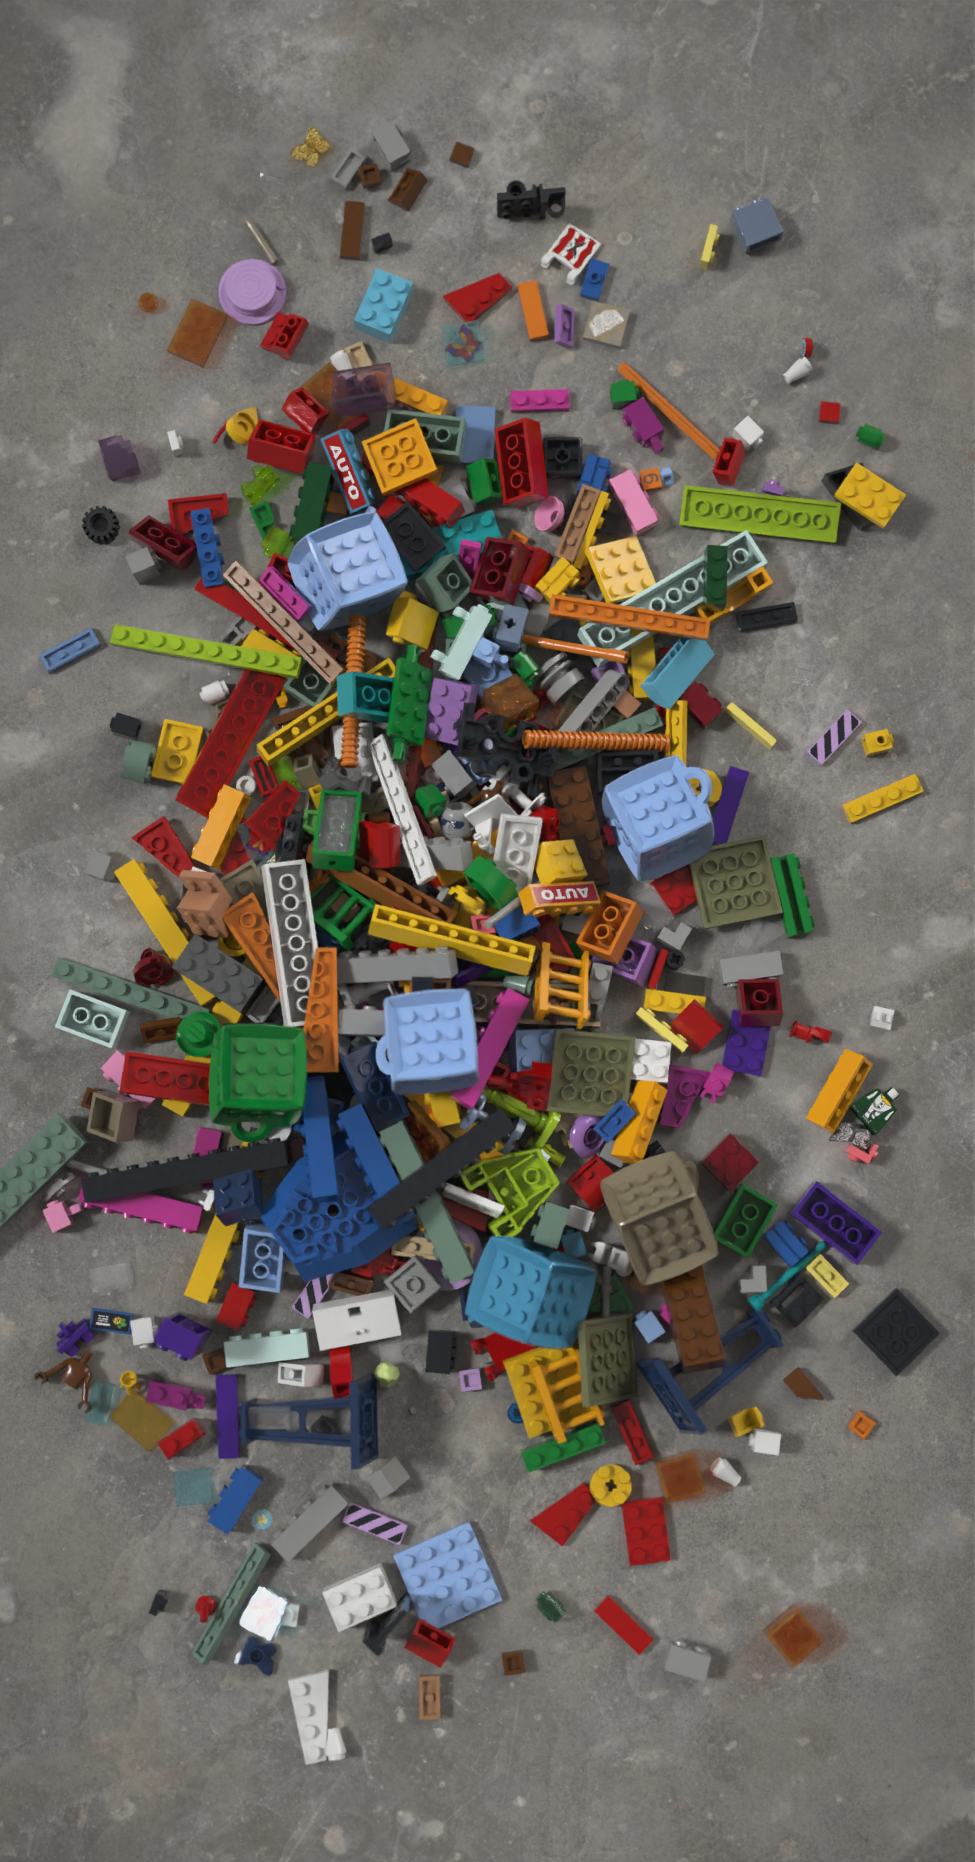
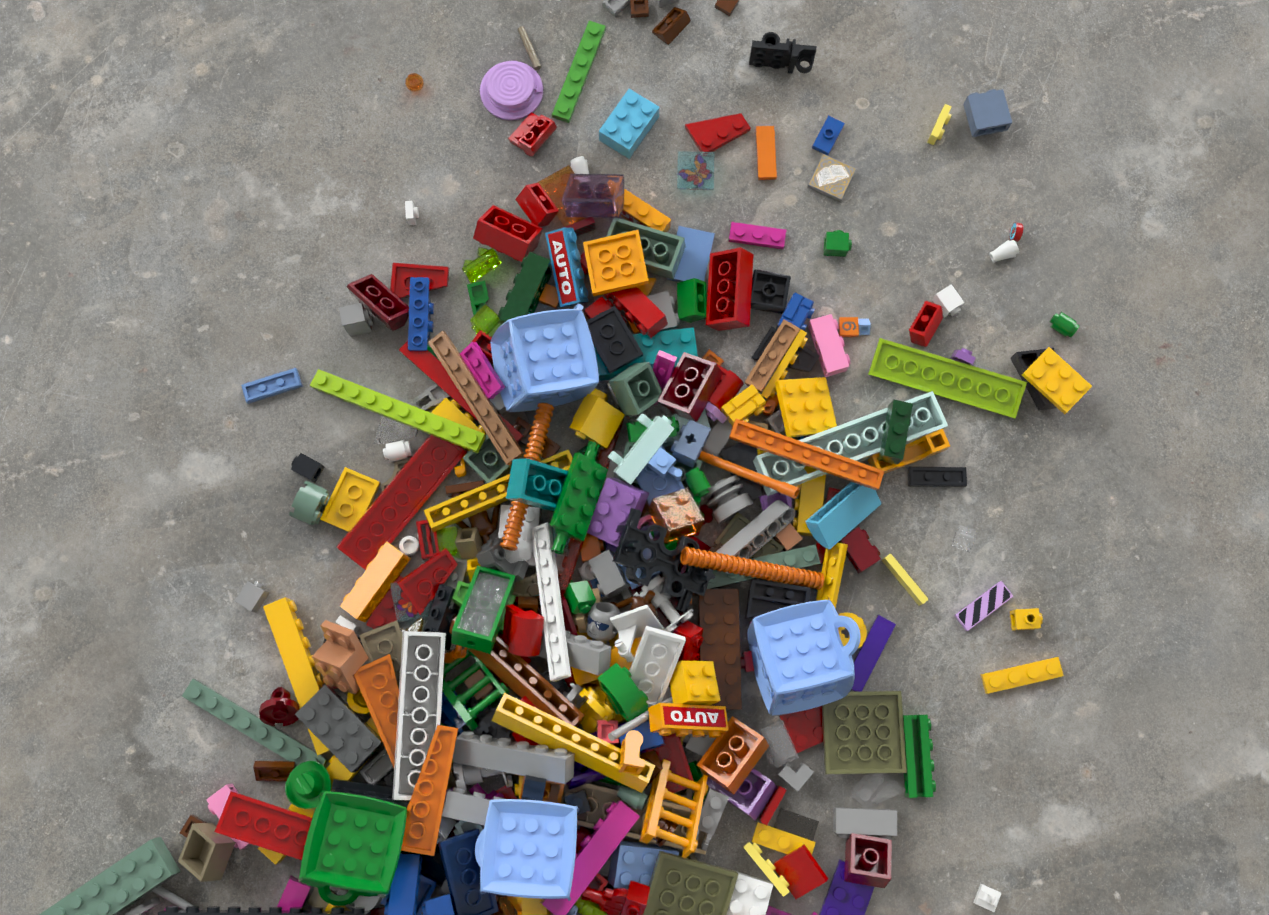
camera: 10 degrees right, 5 degrees down
(92, 1019) = (209, 748): light aqua brick -> none
(109, 533) = (326, 263): black tyre -> none
(118, 458) = (355, 217): clear purple piece -> none
(165, 846) = (319, 589): red wing -> none
(197, 333) = (453, 117): clear orange plate -> none
(239, 426) = (473, 207): yellow piece -> none
(319, 258) = (578, 71): none -> bright green plate
(352, 230) = (613, 52): reddish brown tile -> none
(358, 355) = (596, 163): tan tile -> none
(381, 242) = (638, 67): black tile -> none
(508, 937) = (630, 753): none -> light orange leg
(546, 513) = (744, 339): bright pink piece -> none
(564, 326) = (792, 171): medium lavender plate -> none
(572, 249) = (813, 105): flag -> none
(644, 425) = (851, 275): magenta hinge -> none
(669, 411) = (877, 267): orange axle -> none
(673, 966) = (796, 802): black bush -> none
(805, 1033) = (910, 899): red connector -> none
(829, 412) = (1028, 295): red tile -> none

